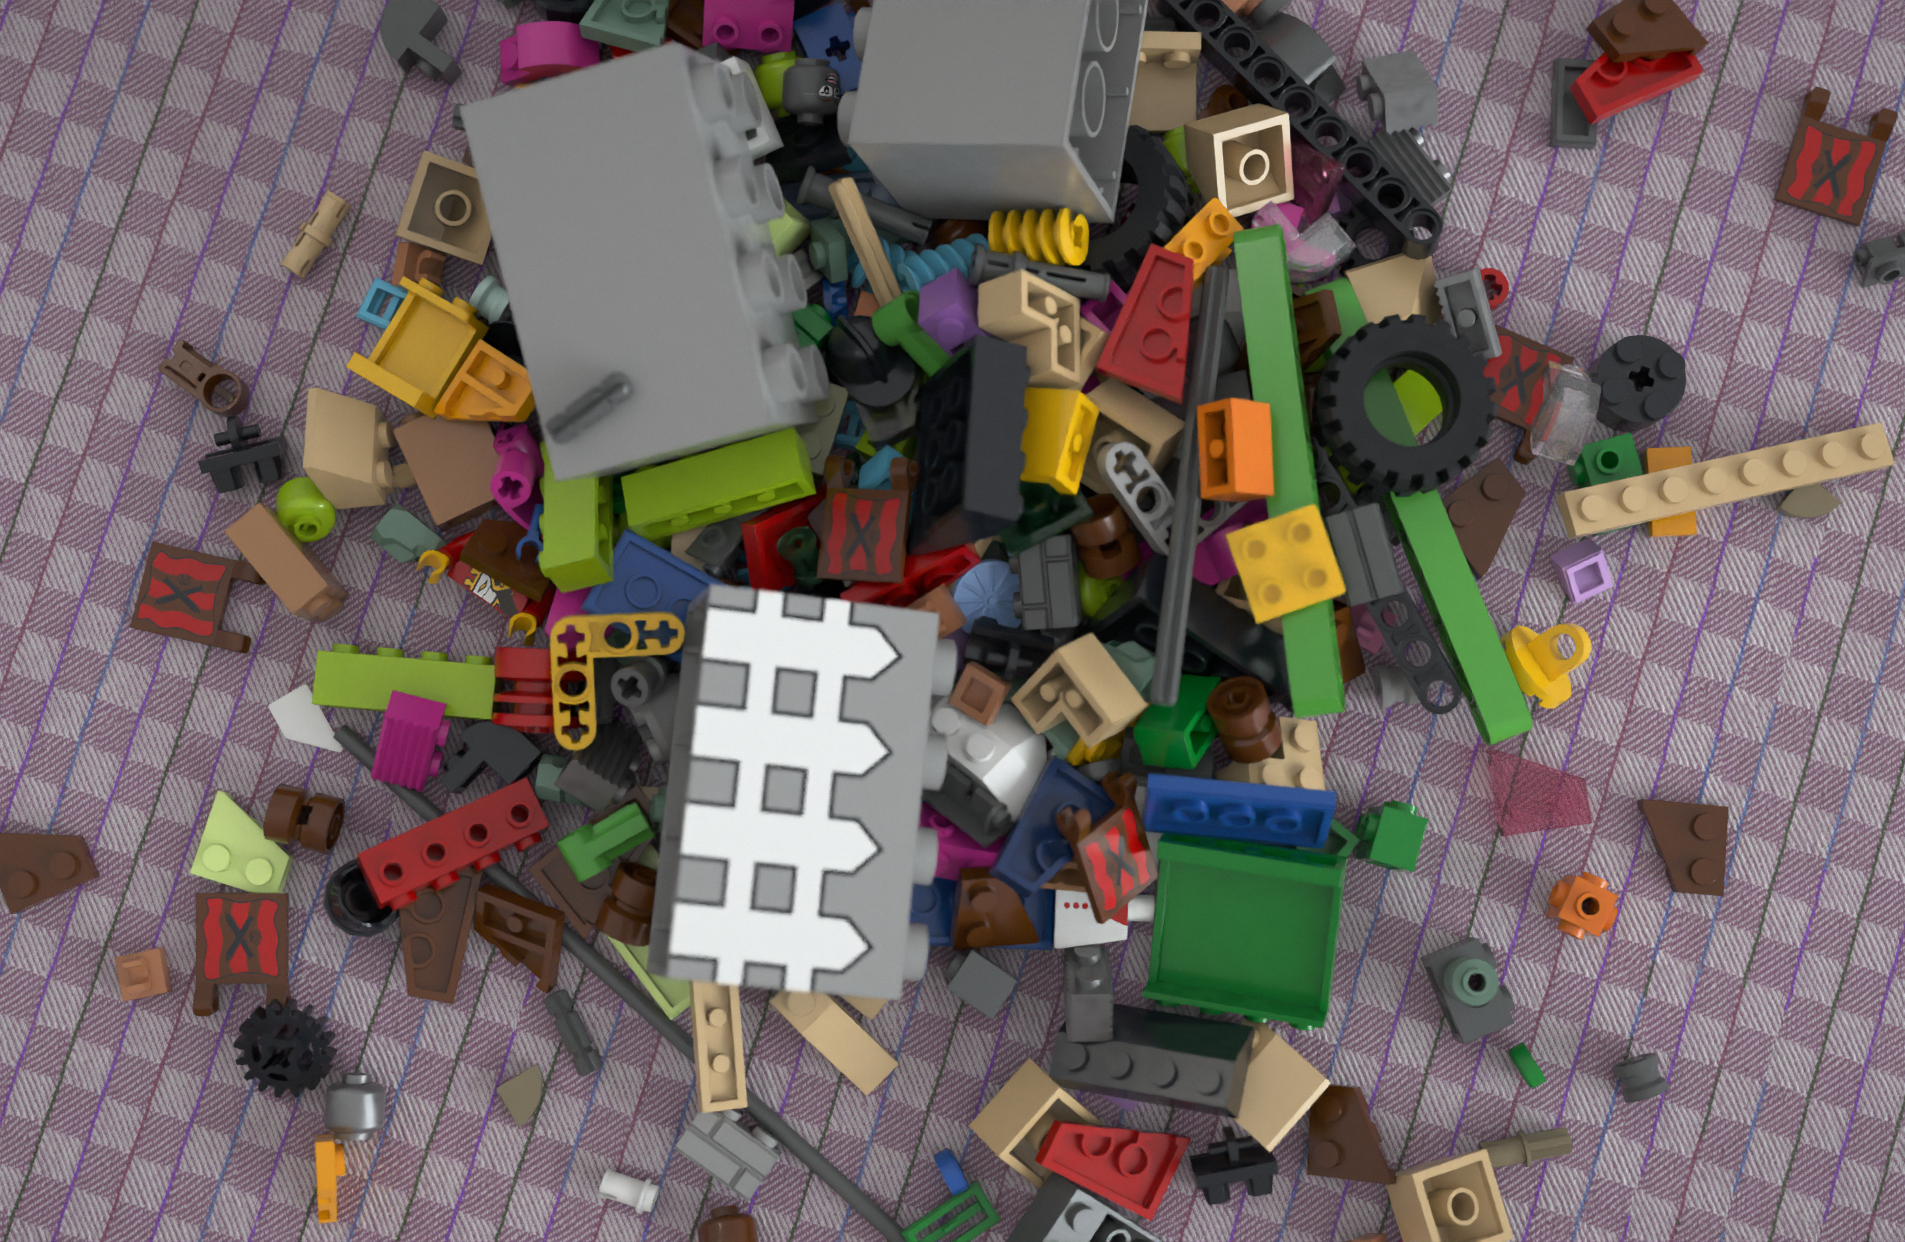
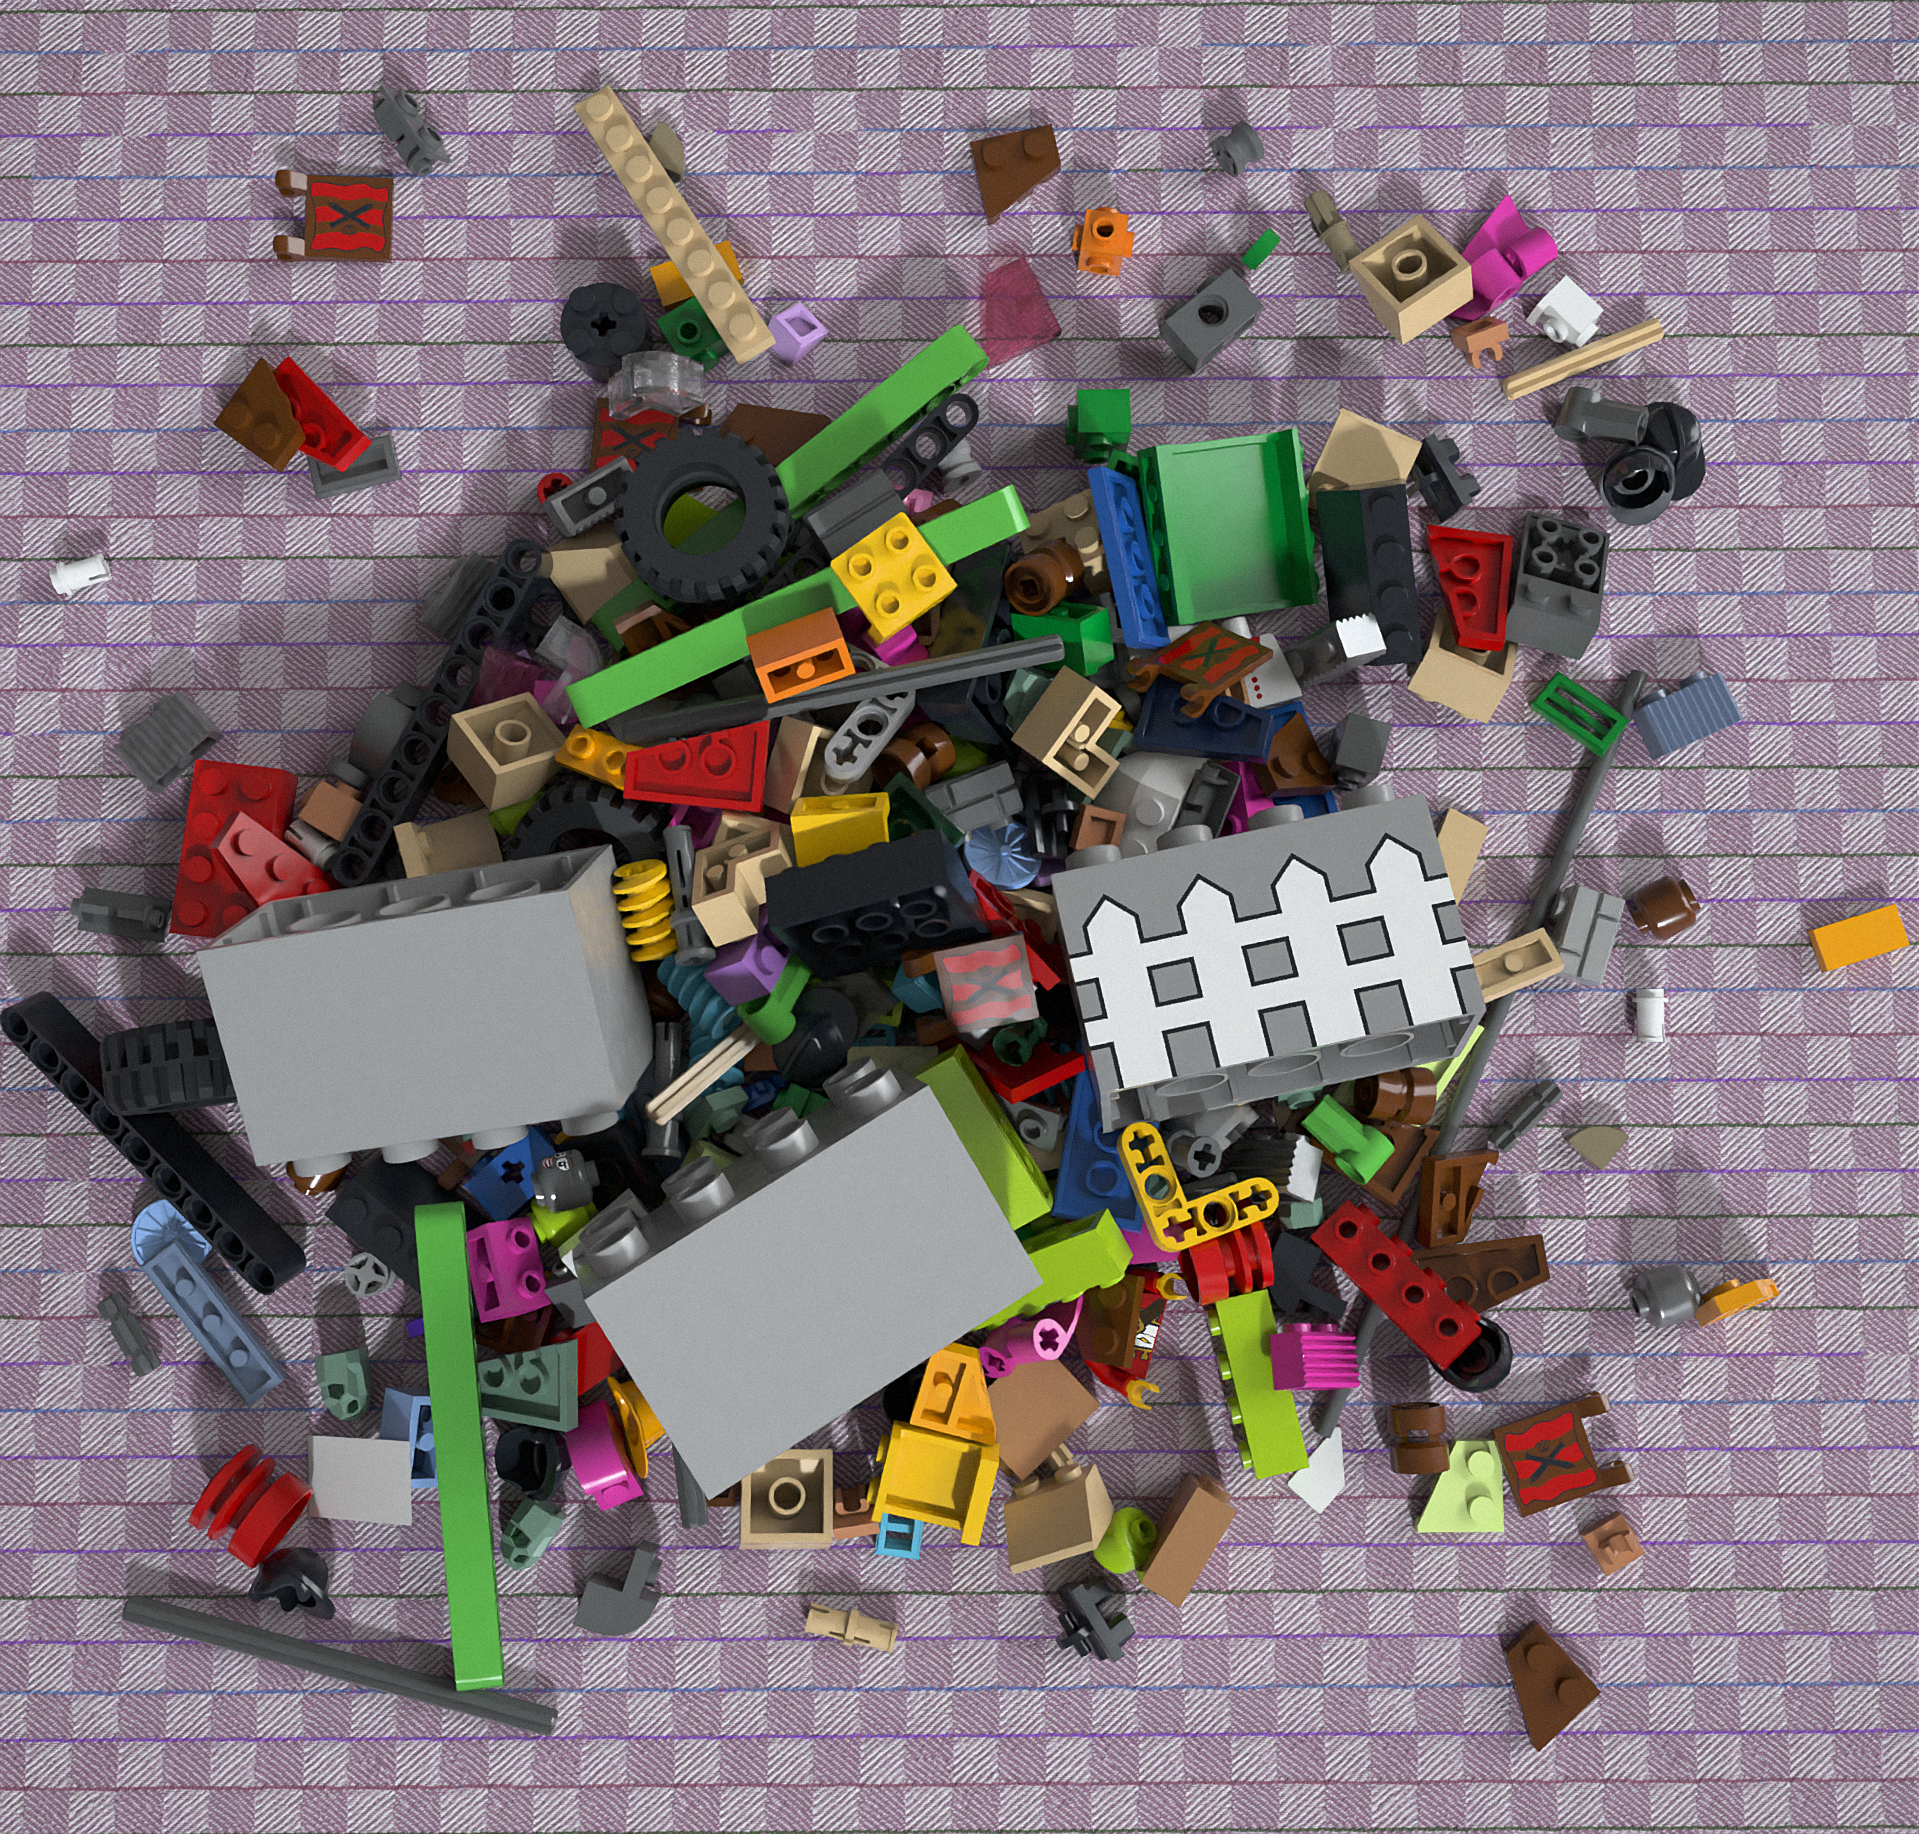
camera: 105 degrees left, 0 degrees up
(188, 596) = (1242, 1627): flag -> none
(202, 377) = (1027, 1692): reddish brown piece -> none
(281, 1029) = (1635, 1380): black gear -> none
(405, 535) = (1118, 1430): sand green rock -> none
(491, 300) = (863, 1426): light aqua wheel -> none
(533, 534) = (1084, 1303): blue hand -> none
(589, 407) = (966, 1270): dark grey axle -> none
(941, 602) = (1033, 897): nougat tile -> none
(951, 1171) = (1531, 727): blue tile -> none
(1345, 1139) = (1383, 385): reddish brown wing -> none
(1398, 91) = (395, 625): flat silver brick -> none
(1457, 977) = (1209, 311): sand green brick -> none
(1539, 664) = (898, 337): yellow tile -> none

